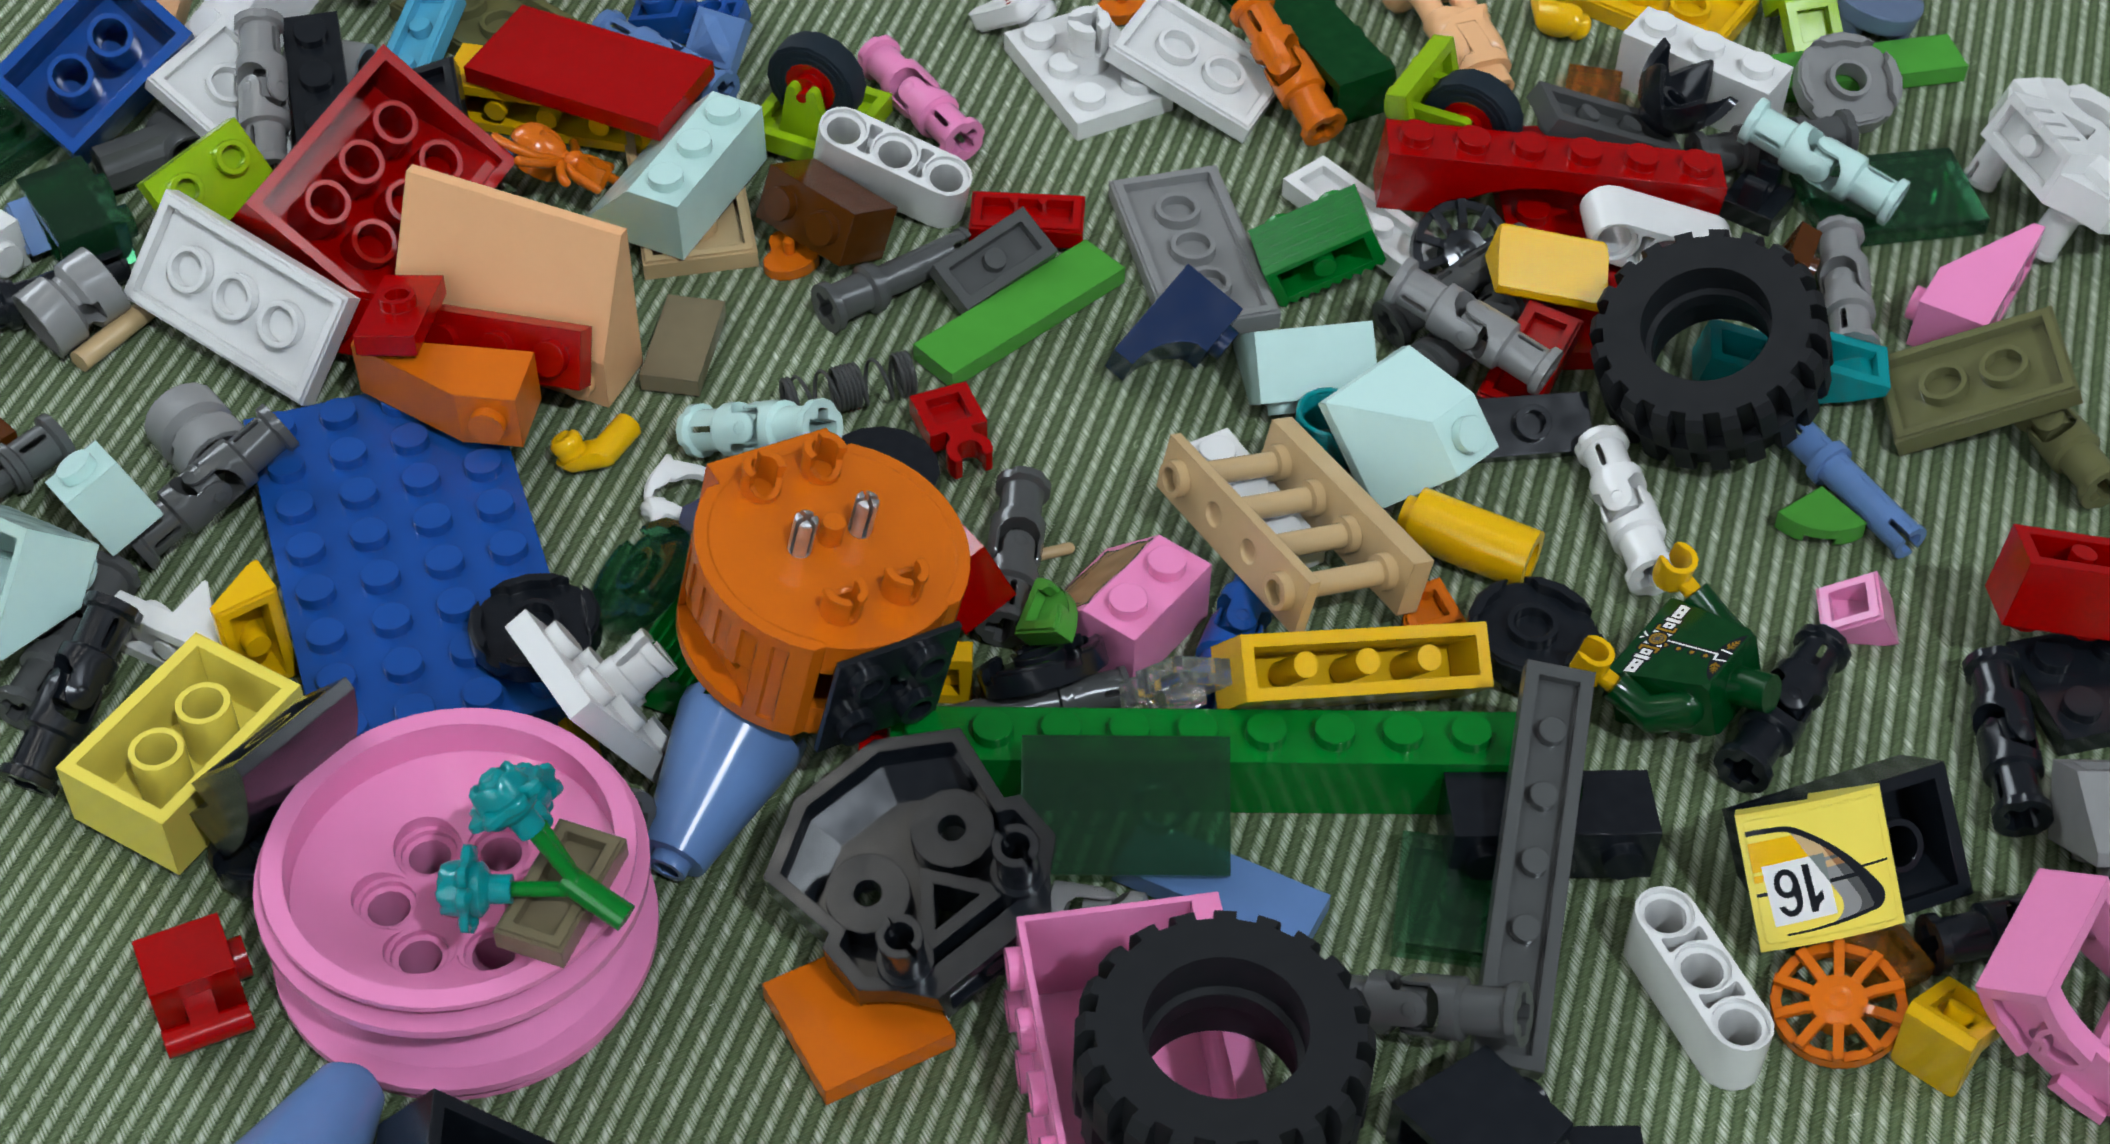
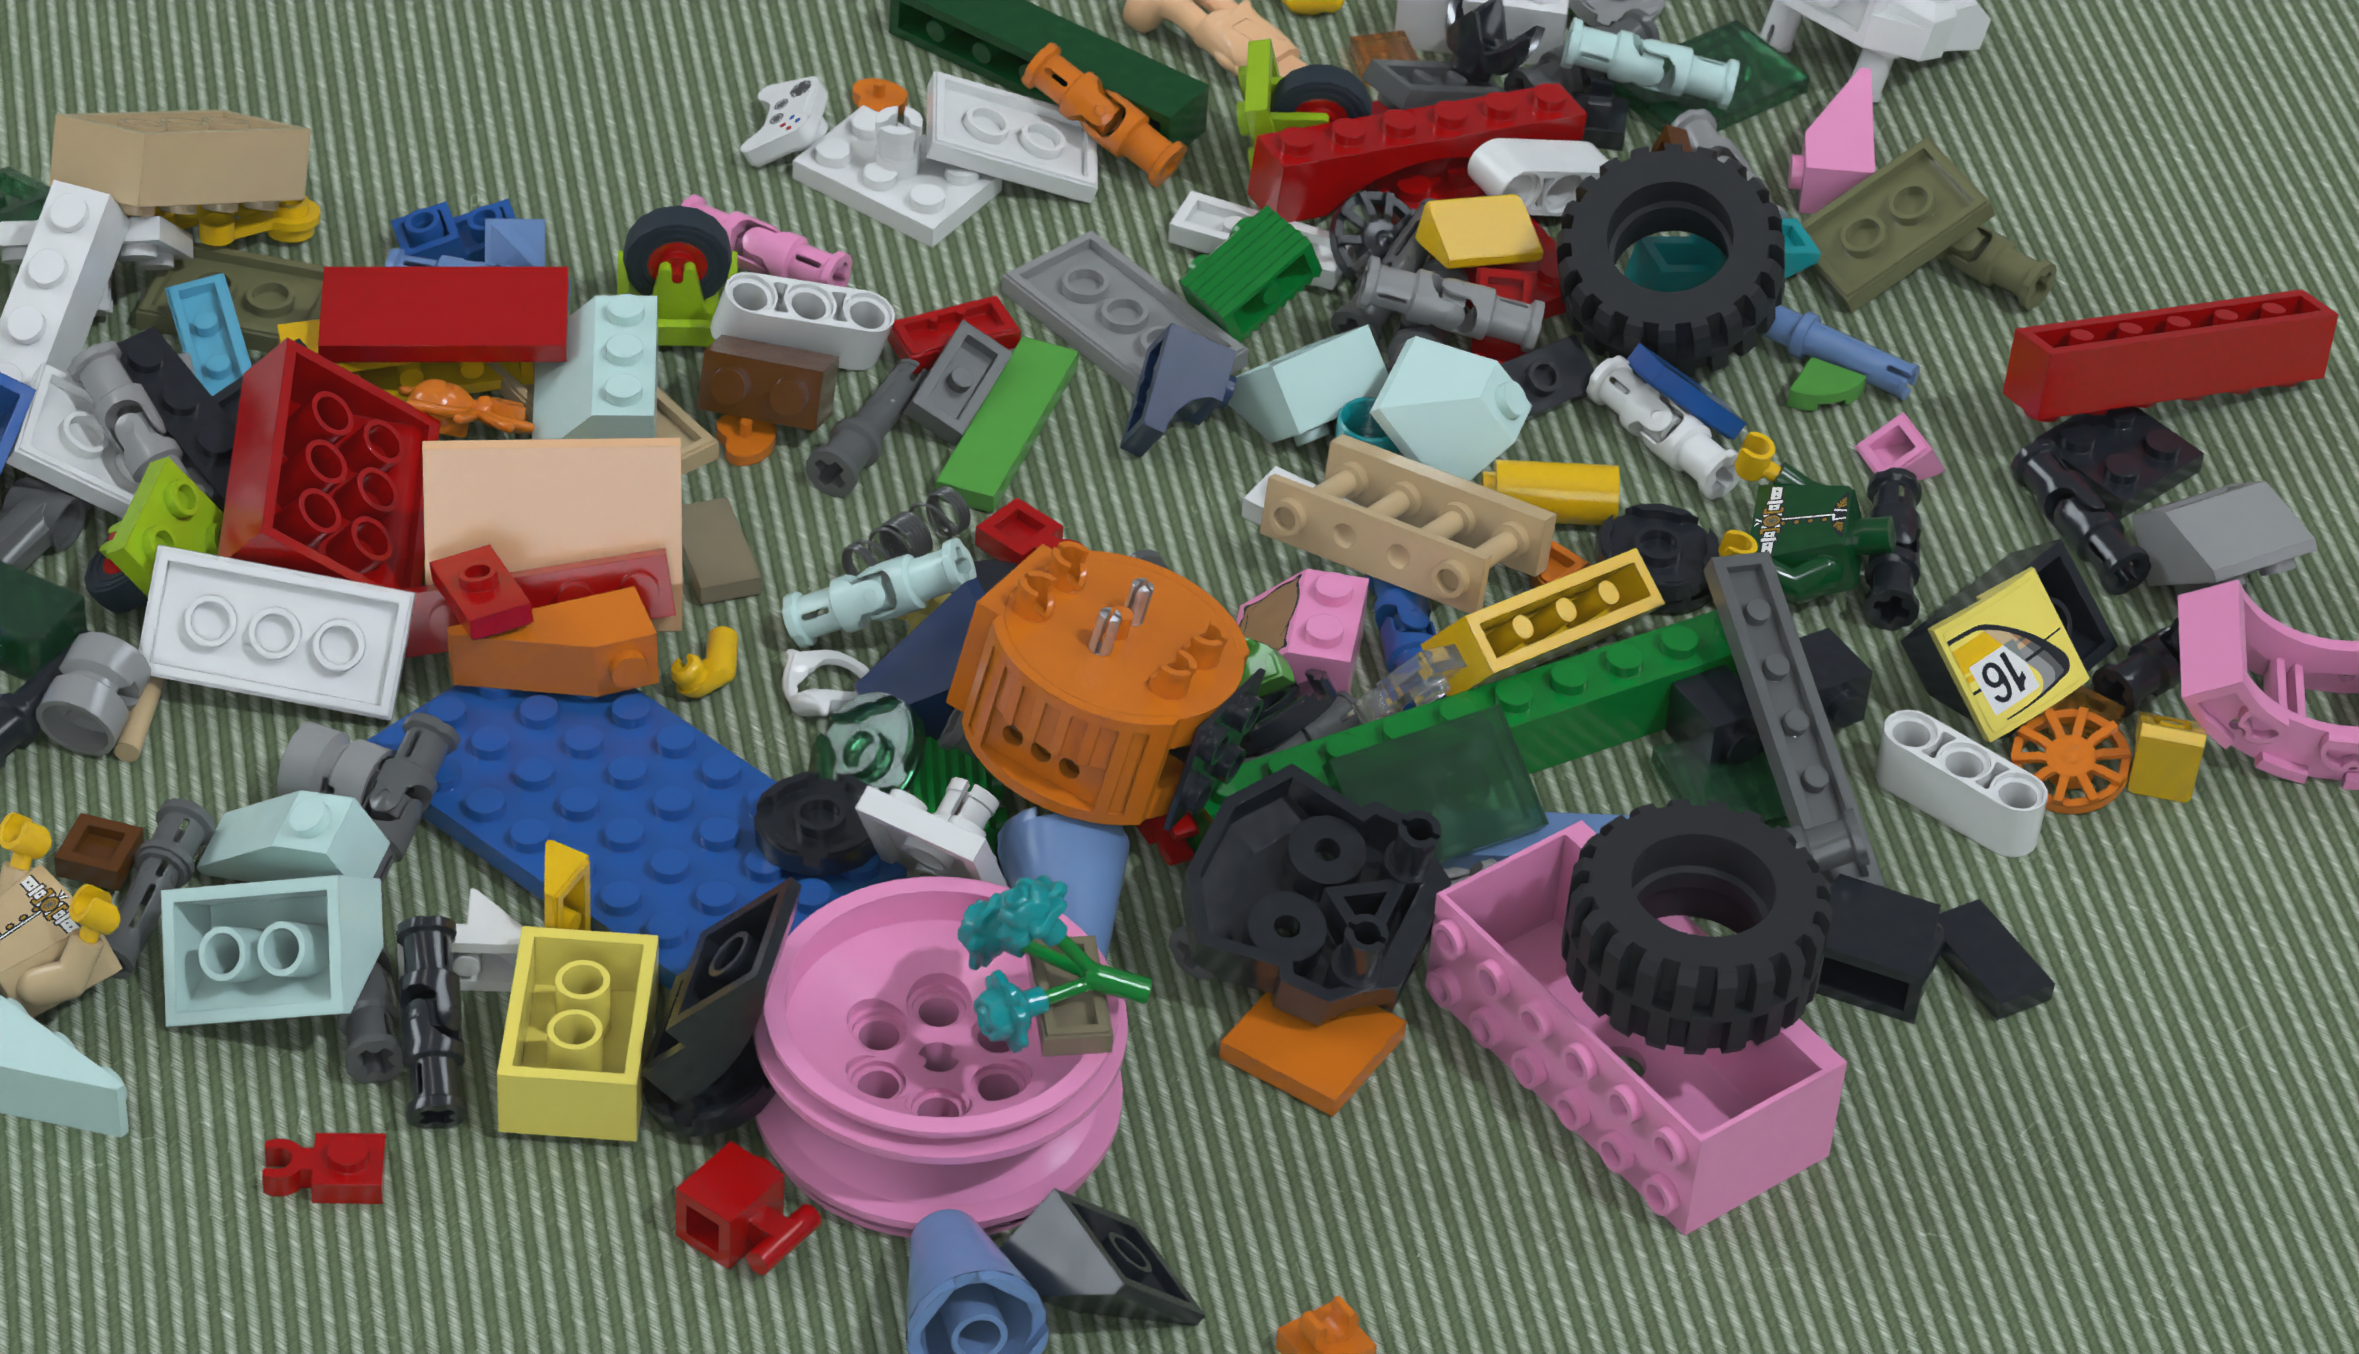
camera: 30 degrees left, 5 degrees down
(1658, 481) = (1685, 392): none -> blue tile

